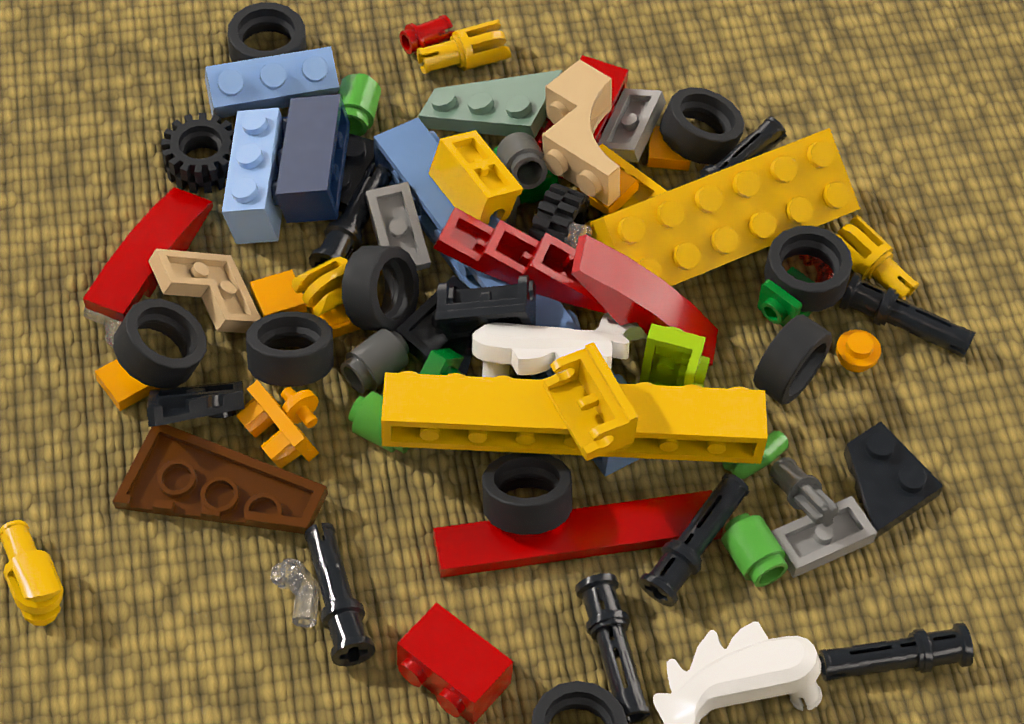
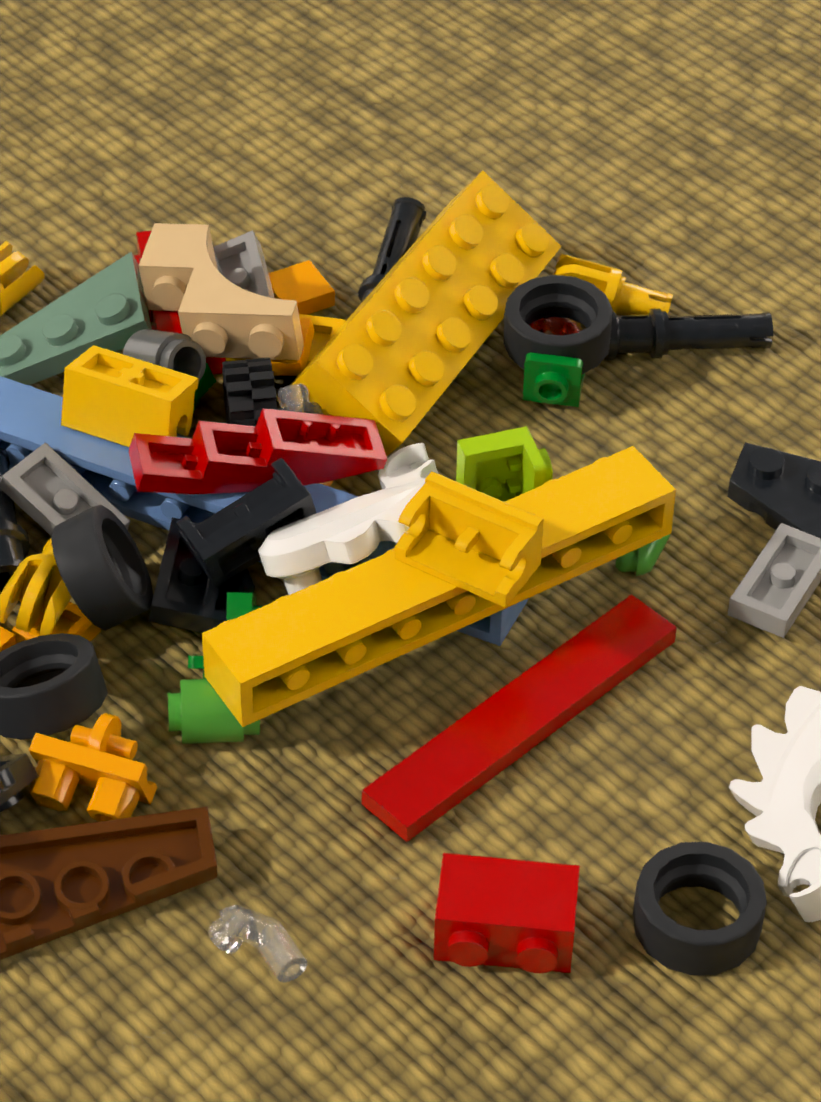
camera: 30 degrees left, 10 degrees down
(341, 612) = (331, 931): black pin -> none
(370, 360) = (150, 652): dark grey brick -> none
(530, 514) = (452, 717): black tyre -> none
(610, 624) = (639, 785): black pin -> none
(636, 294) = (400, 422): slope -> none
(683, 555) = (659, 587): black pin -> none
(708, 108) = (321, 248): black tyre -> none
(754, 549) = (726, 626): bright green brick -> none
(792, 359) = (615, 410): black tyre -> none
(803, 491) = (731, 542): dark grey axle -> none
(858, 350) = (662, 390): light orange plate -> none

